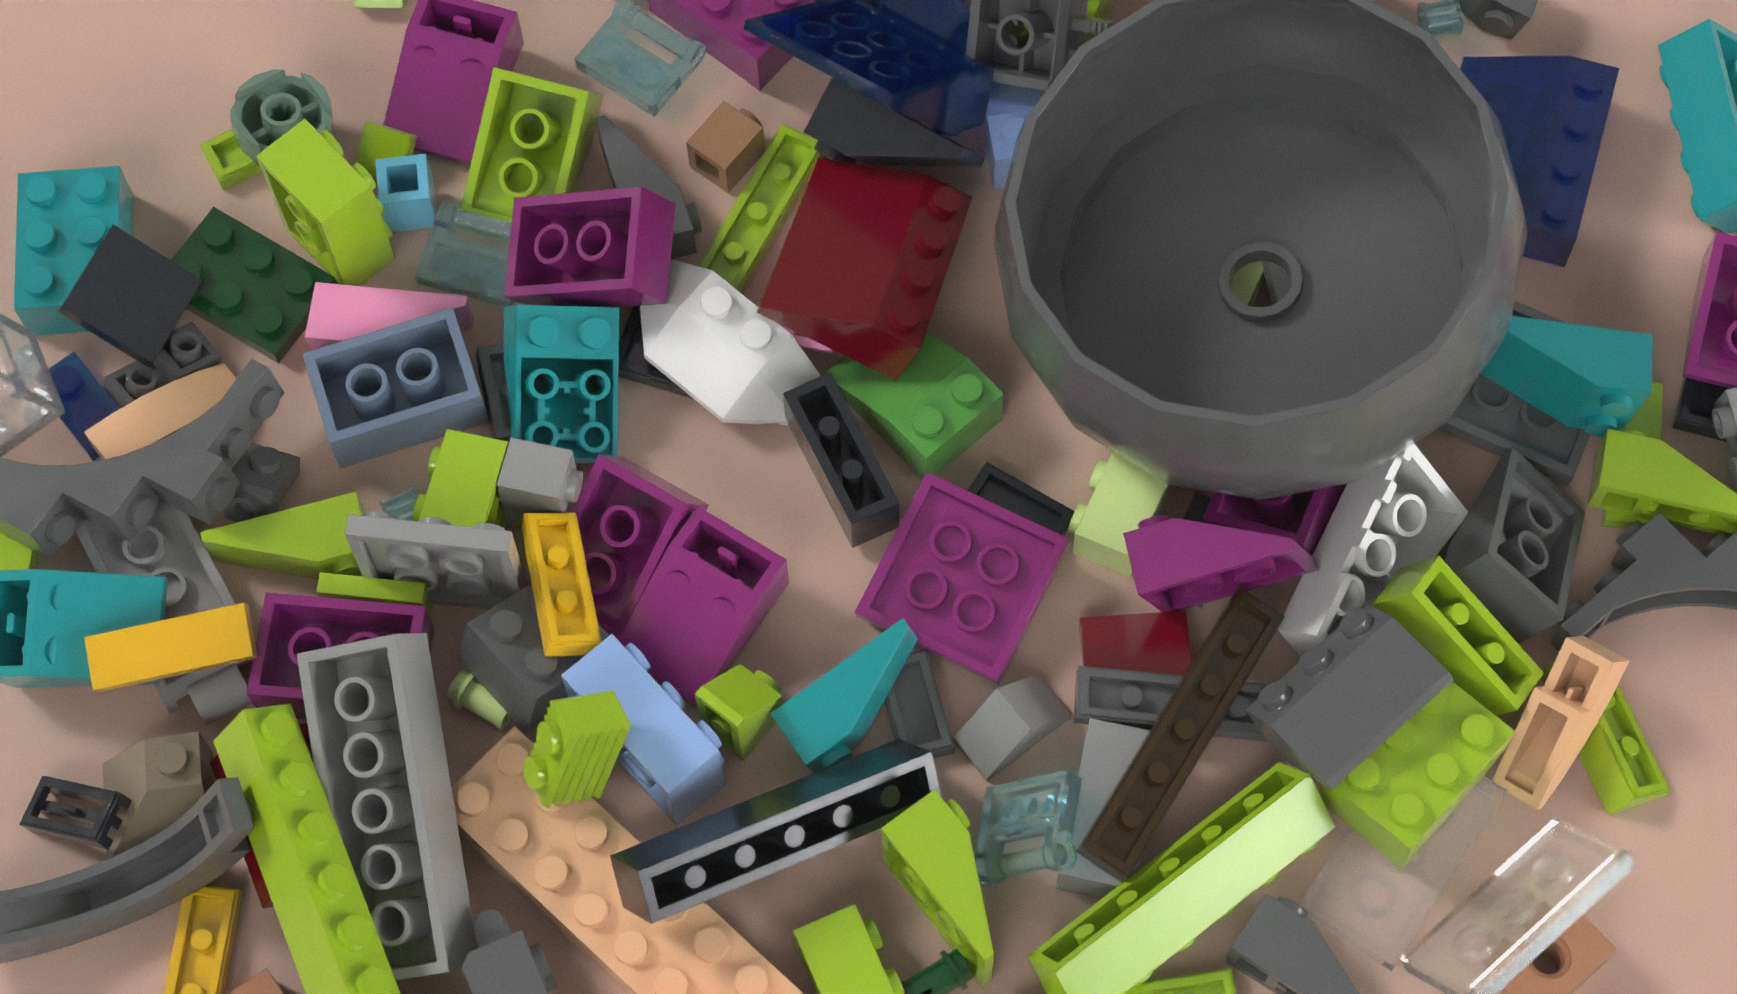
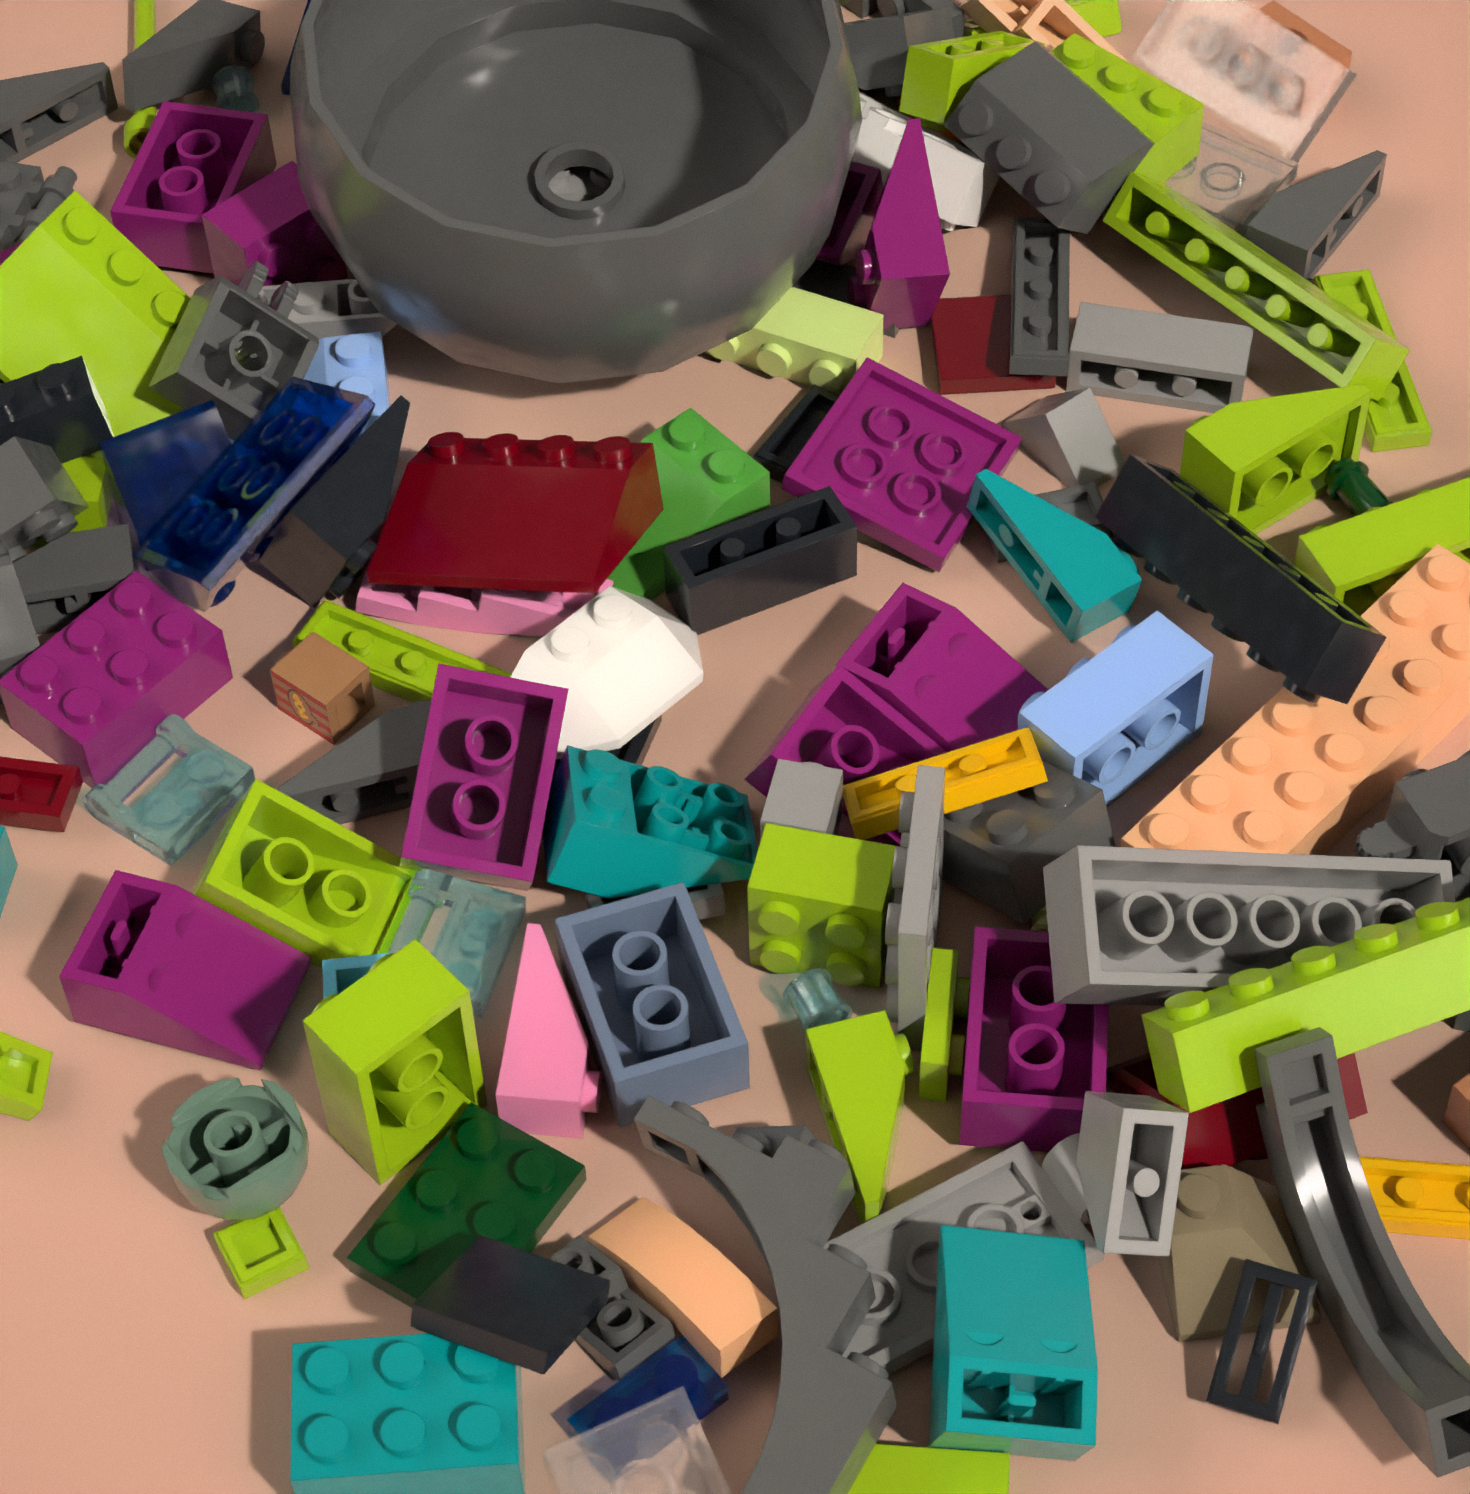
camera: 90 degrees left, 15 degrees down
(170, 647) = (1052, 1195): yellow tile -> none
(186, 703) = (1131, 1170): none -> light grey slope
(382, 142) = (280, 1053): lime tile -> none
(576, 748) = (1173, 725): lime brick -> none
(739, 707) = (1070, 633): lime slope -> none
(1027, 811) = (1176, 390): clear light blue plate -> none
(1180, 735) = (1093, 281): dark brown tile -> none

